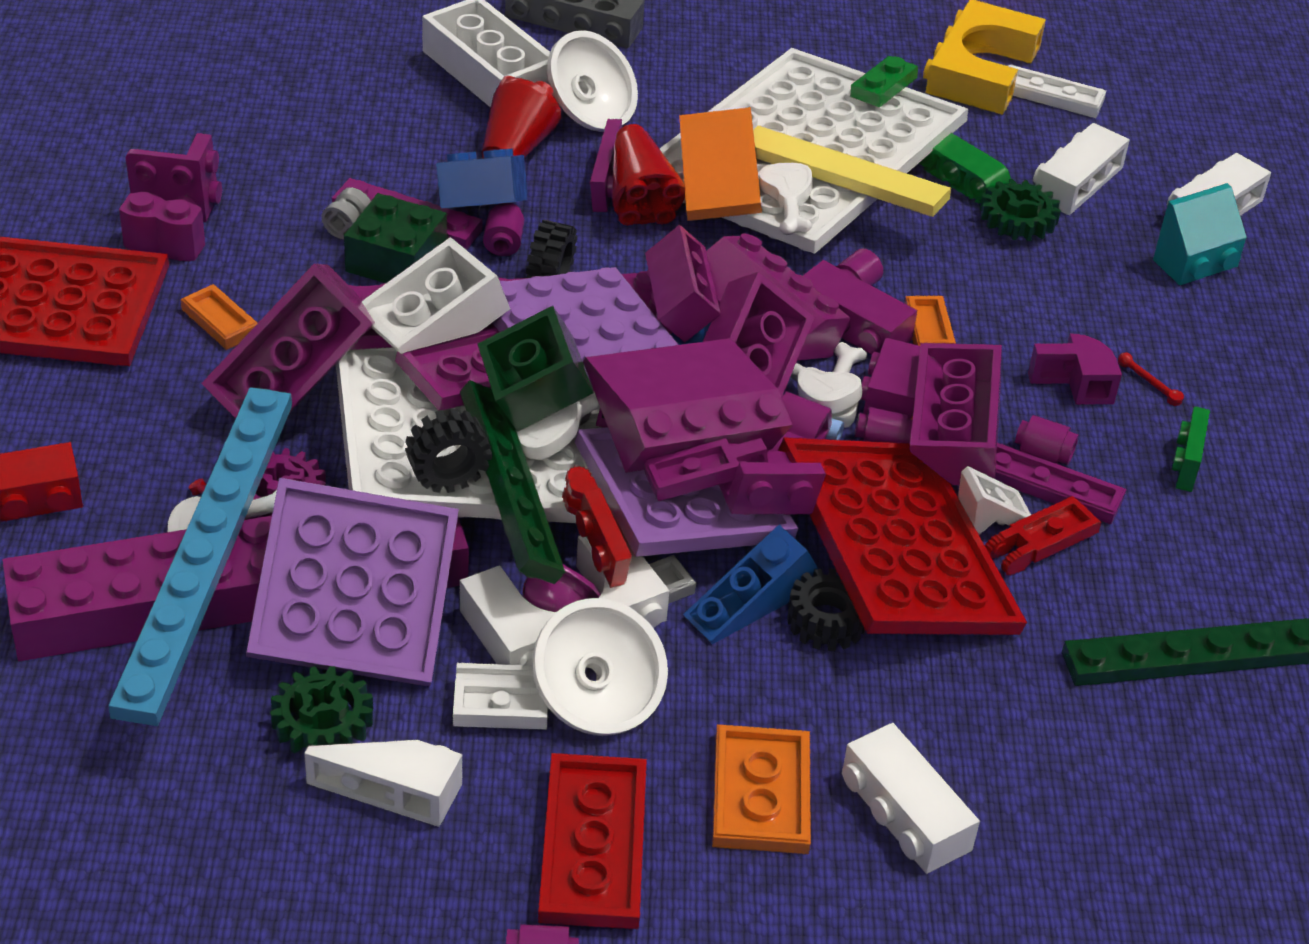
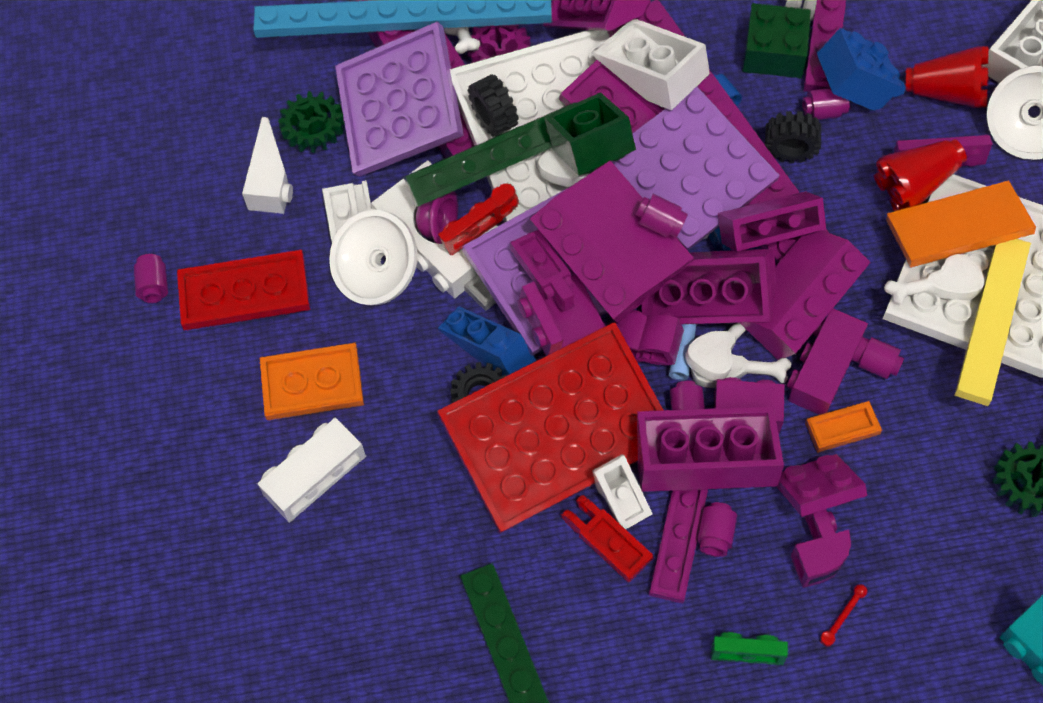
camera: 85 degrees right, 20 degrees up
(684, 331) = (661, 215): none -> magenta brick
(1022, 337) = (820, 485): none -> magenta plate

